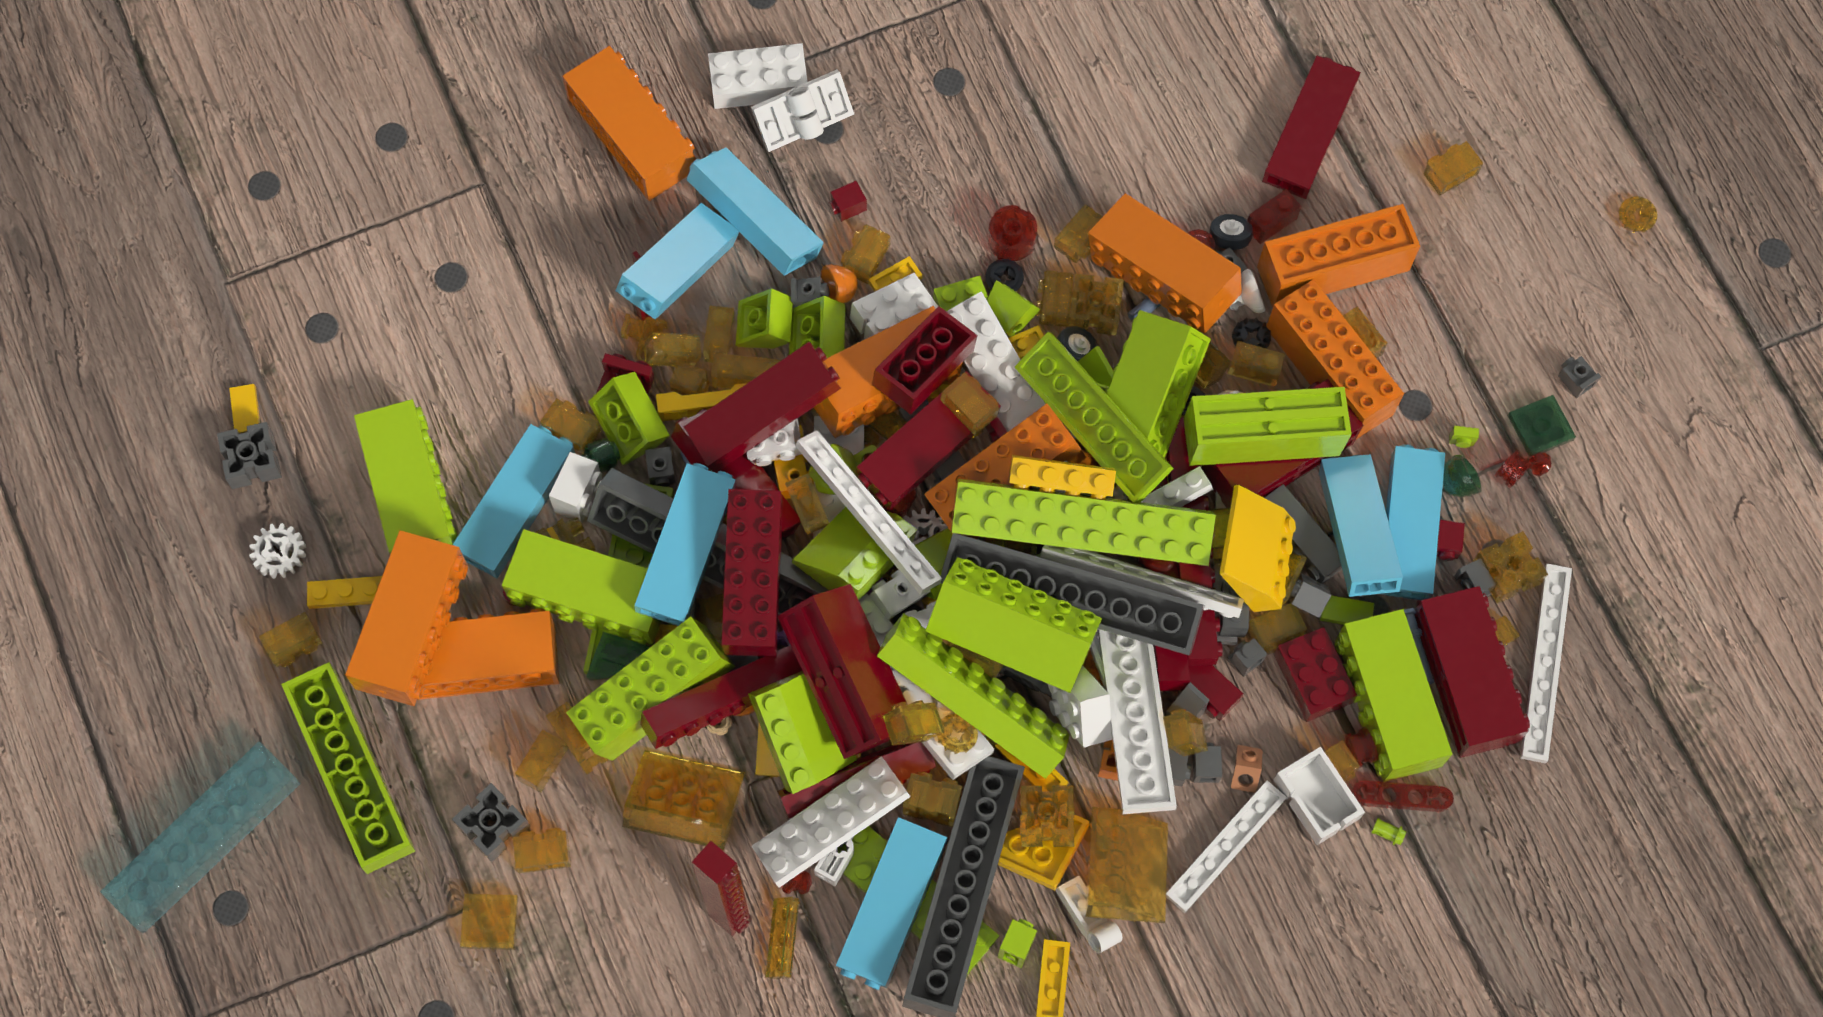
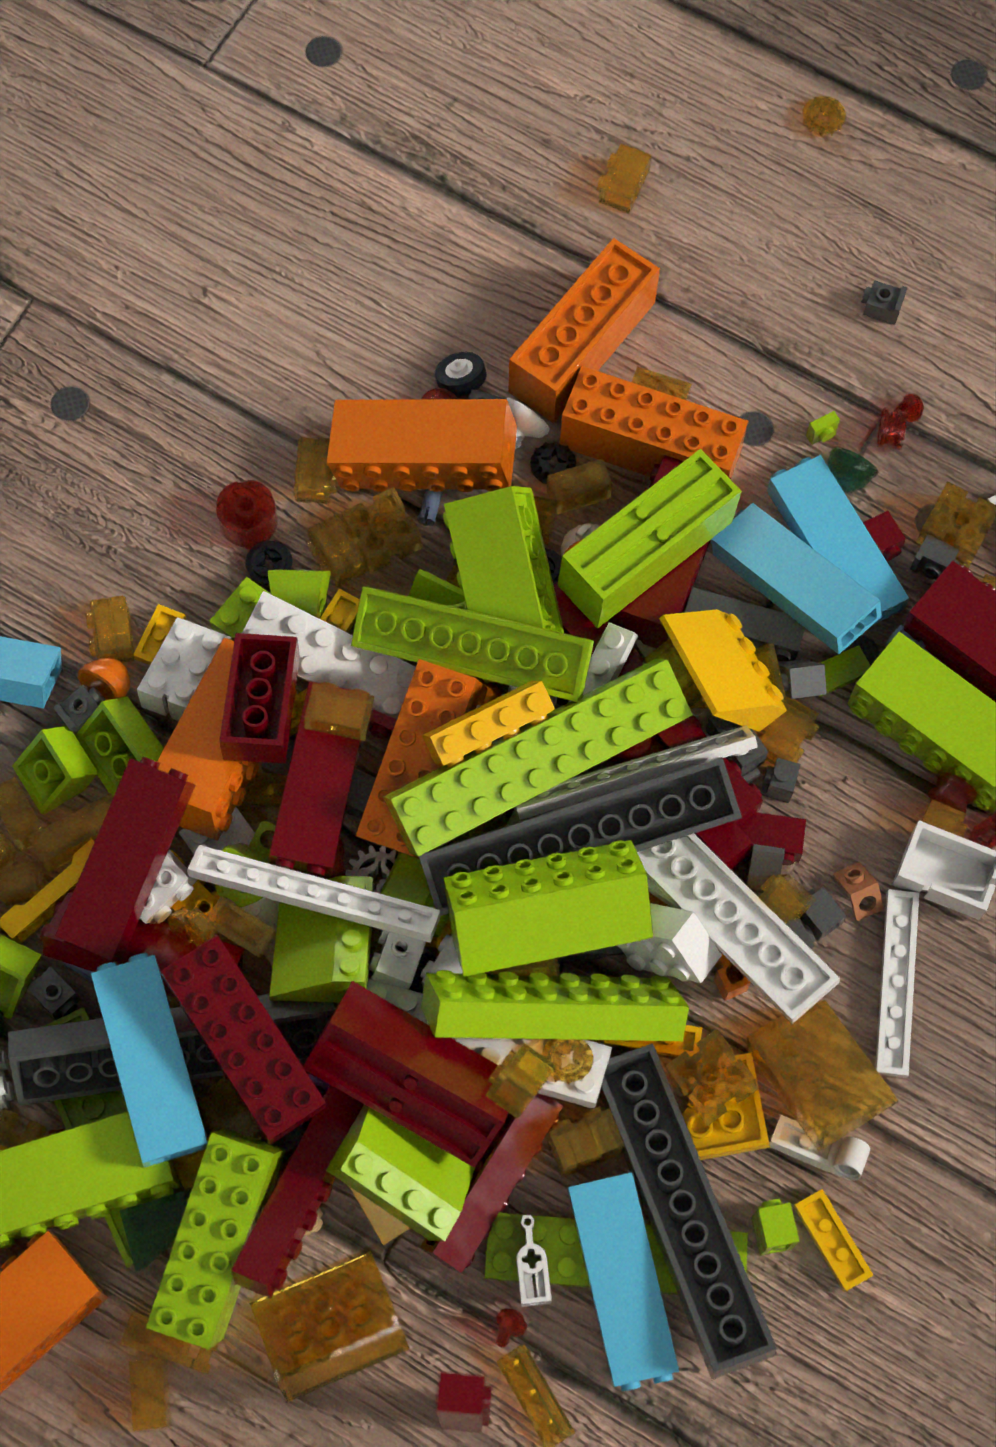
camera: 35 degrees left, 0 degrees up
(777, 479) = (191, 926): none -> clear yellow piece
(830, 821) = (502, 1242): white plate -> none
(847, 201) = (54, 589): dark red brick -> none
(1077, 341) = (391, 578): black wheel -> none
(1274, 216) = (491, 330): clear red brick -> none
(1311, 126) = (463, 223): dark red brick -> none
(1315, 674) = (856, 753): dark red brick -> none
(1541, 426) = (885, 371): clear green plate -> none

